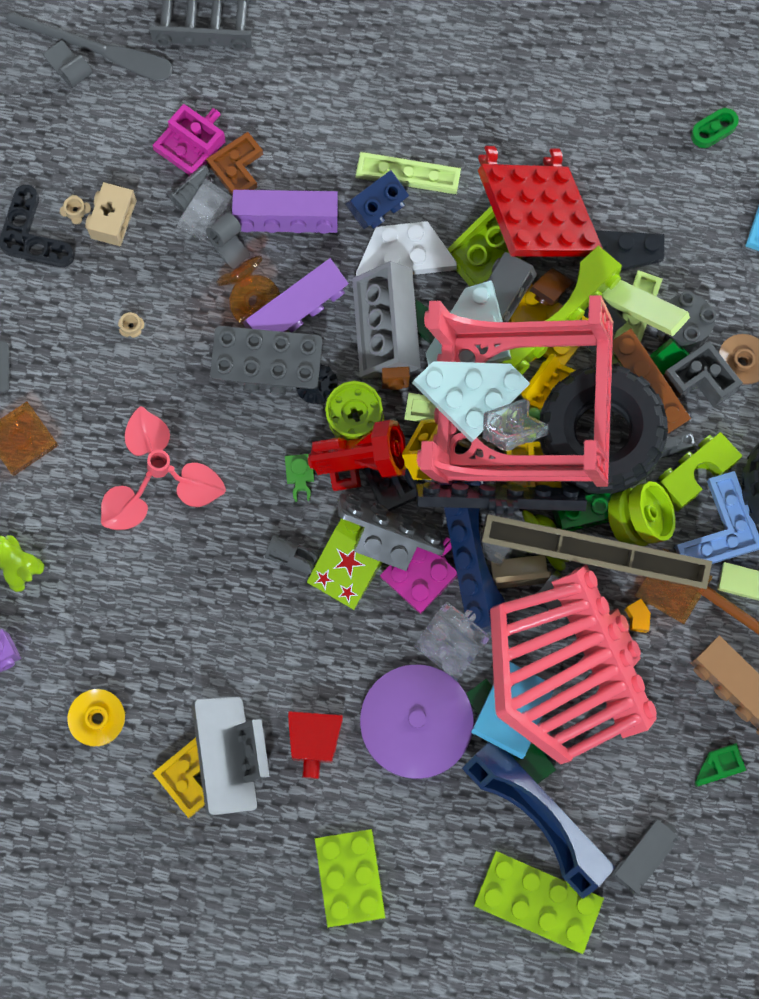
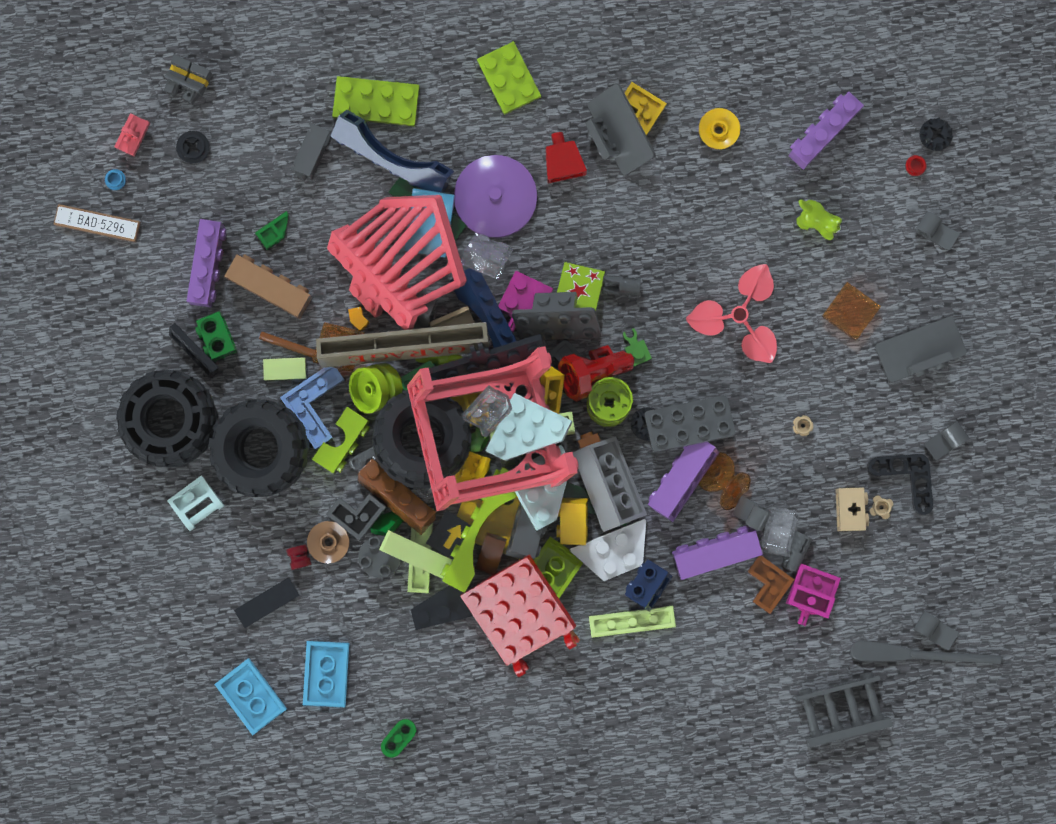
camera: 165 degrees right, 10 degrees up
(445, 286) = (573, 521): none -> yellow brick

